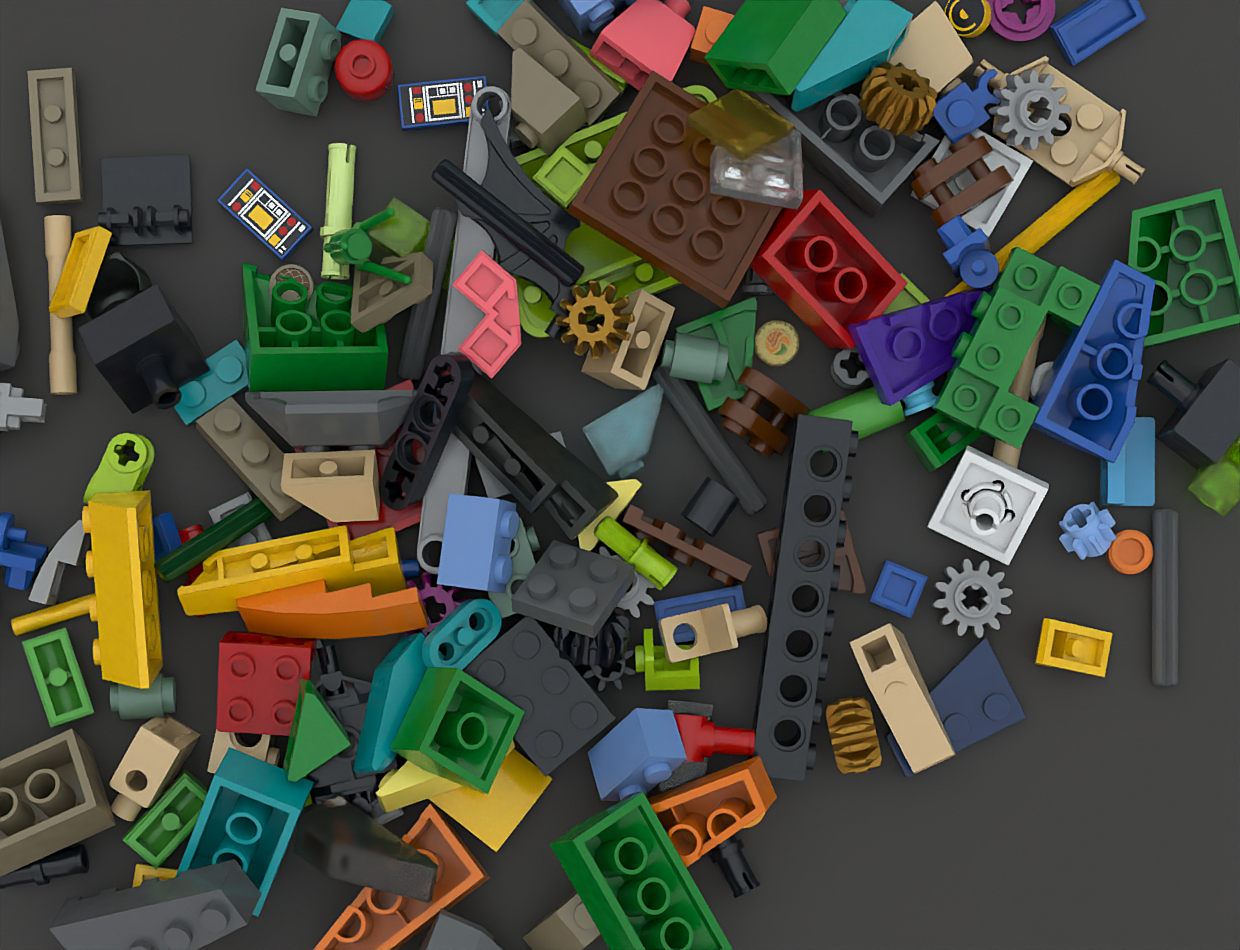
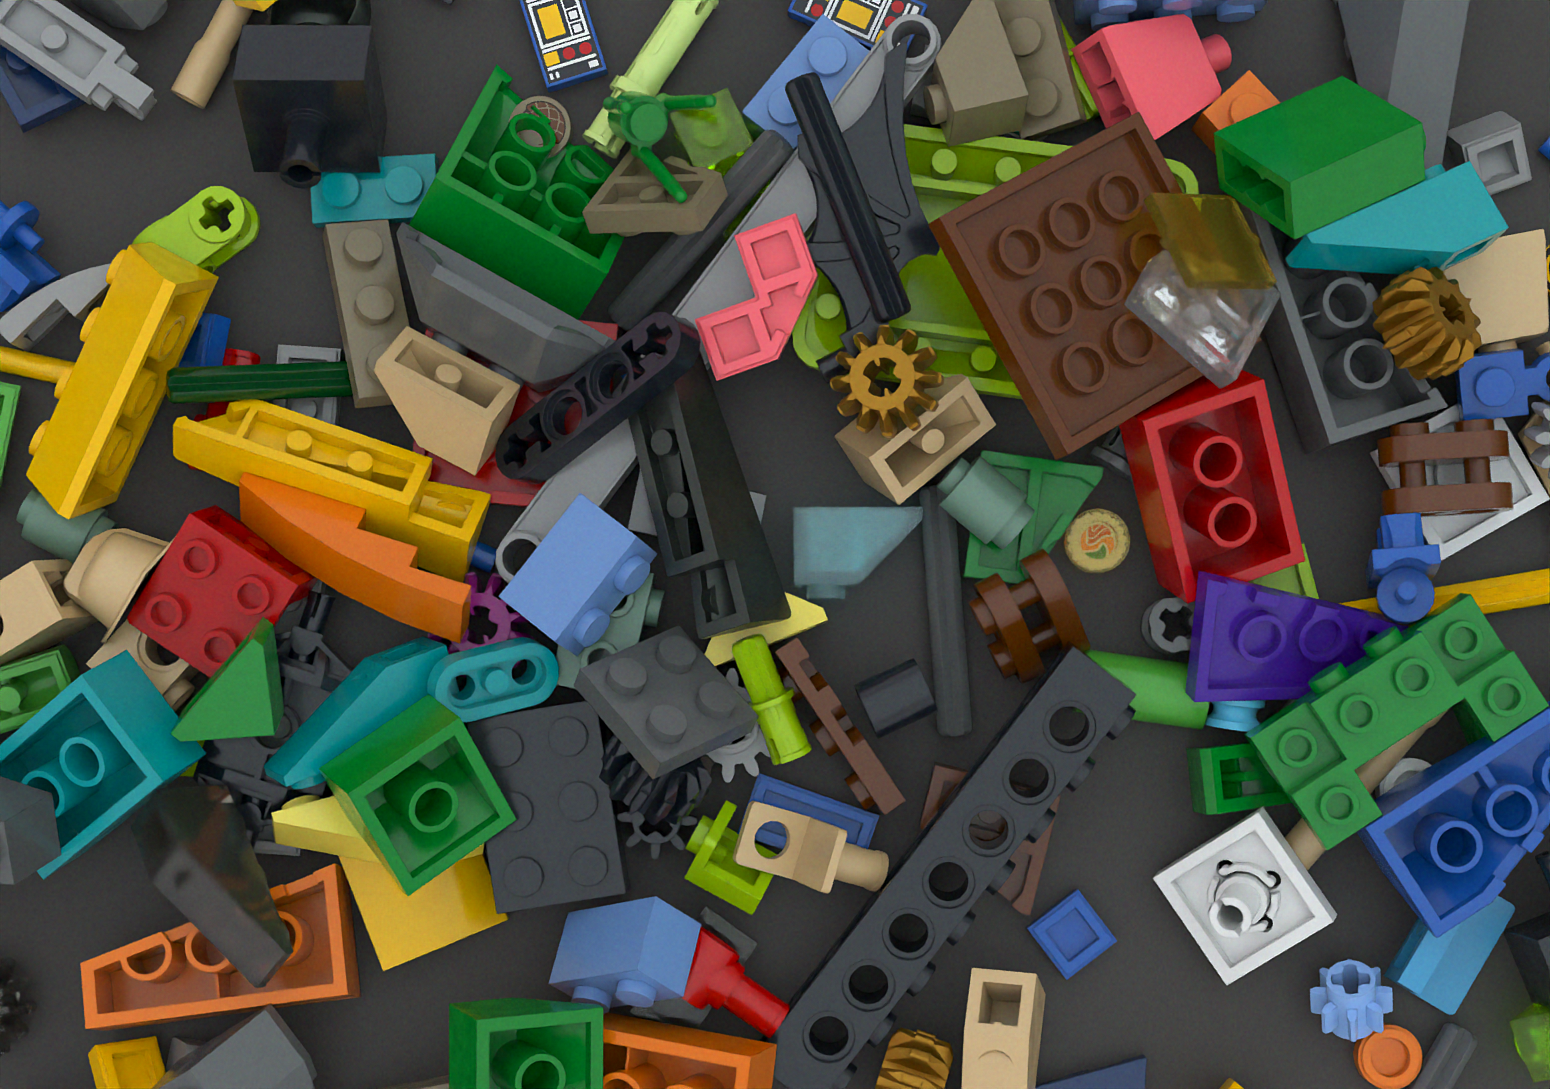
camera: 35 degrees right, 0 degrees up
(192, 707) = (111, 572): none -> tan piece
(439, 142) = (822, 50): none -> medium blue brick
(562, 176) = (949, 178): lime tile -> none
(972, 581) = (1178, 1014): light grey gear -> none

